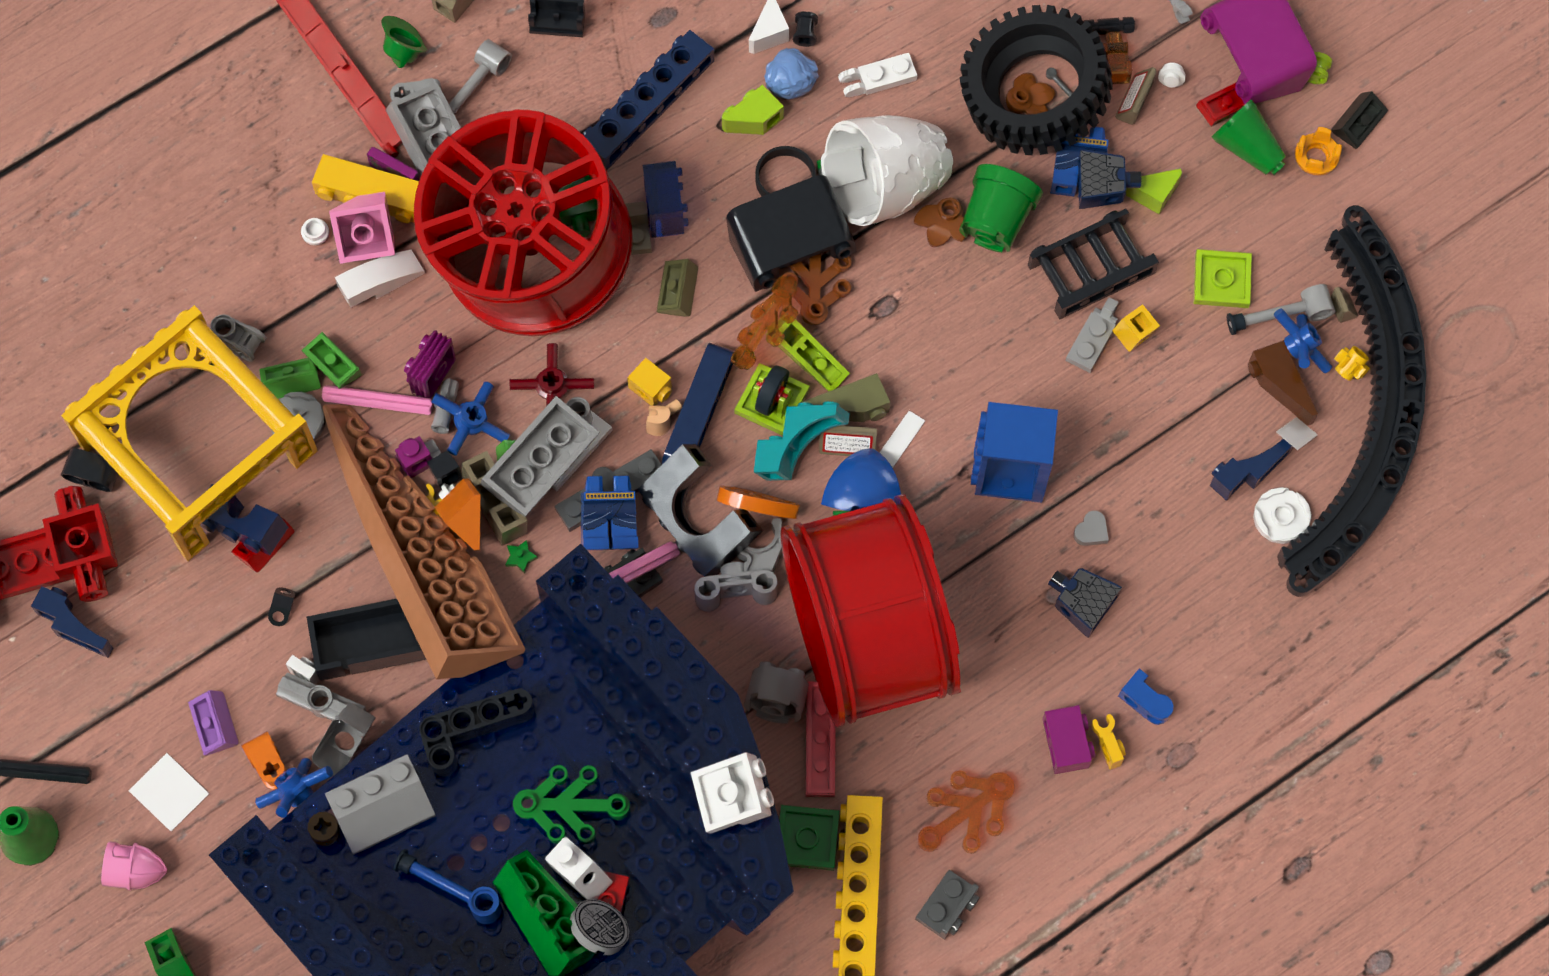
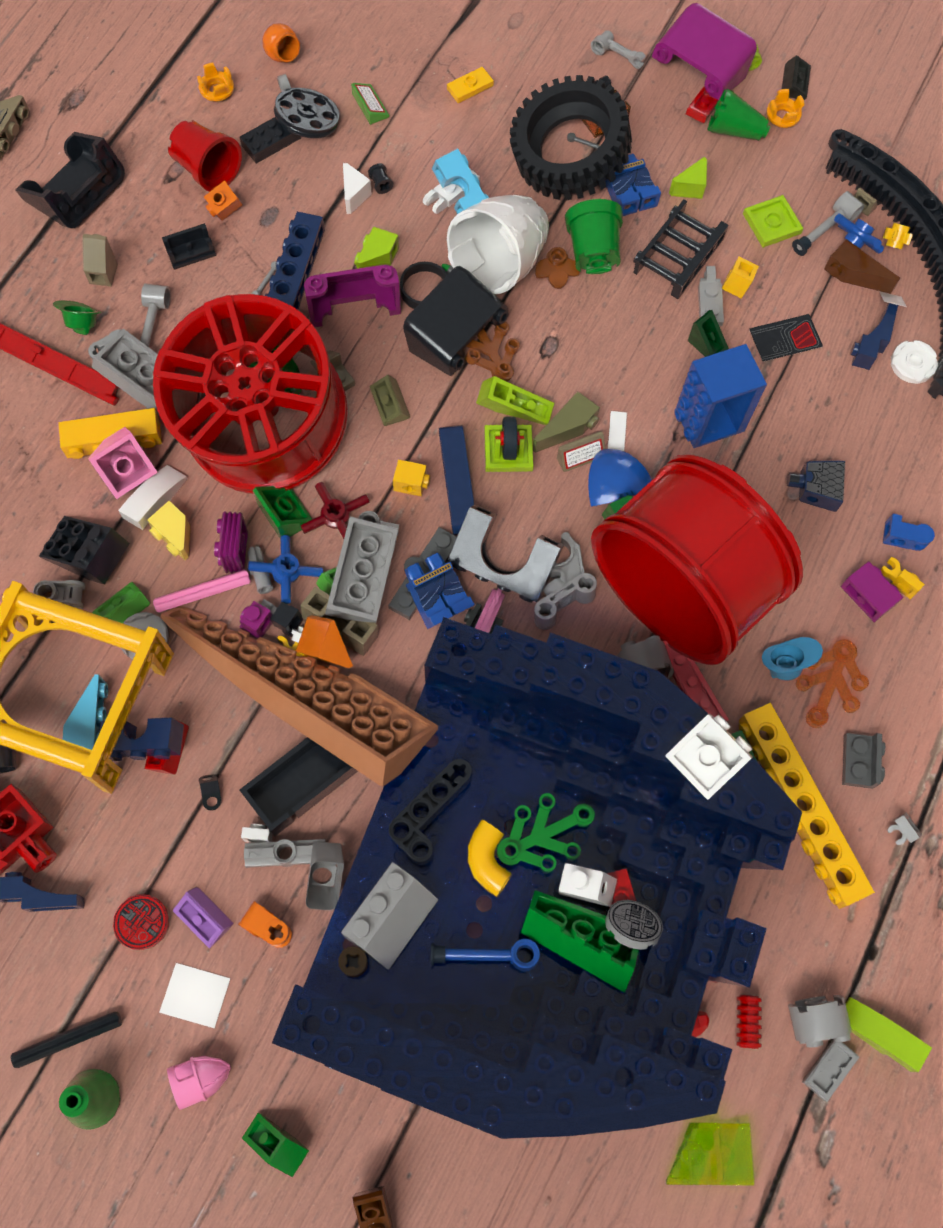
camera: 30 degrees left, 0 degrees up
(153, 697) = (141, 922): none -> tile
(202, 471) = (85, 719): none -> medium azure slope
(284, 300) = (85, 549): none -> black slope
(293, 787) = (303, 937): blue bar -> none
(314, 231) = (82, 485): white plate -> none
(331, 361) = (149, 577): bright green slope -> none
(382, 321) = (173, 528): none -> light yellow slope
(387, 163) = (108, 407): magenta tile -> none
(496, 797) = (482, 858): none -> yellow cylinder
(501, 353) = (281, 509): none -> green slope
(520, 556) = (382, 657): green piece -> none
(601, 101) = (266, 279): none -> light grey hinge
(659, 418) = (432, 500): light nougat piece -> none
(663, 136) = (349, 286): none -> magenta windscreen
(664, 199) = (346, 336): clear blue container -> none
(757, 502) = (544, 527): orange piece -> none
(766, 320) = (476, 363): clear orange plant -> none
(778, 455) = (547, 450): teal arch -> none
(791, 74) = (388, 212): medium blue hair -> none
(885, 57) = (454, 169): none -> medium azure arch
(933, 764) = (791, 657): none -> dark azure piece
(1028, 95) = (565, 154): dark orange plate -> none
(1061, 379) = (707, 335): none -> dark green slope
(1092, 530) = (792, 433): light grey tile -> none
(1103, 179) = (658, 183): torso -> none
(1136, 96) = (640, 125): dark tan slope -> none
(1154, 420) = (785, 337): none -> black sticker
(1172, 75) = (656, 101): white plate -> none

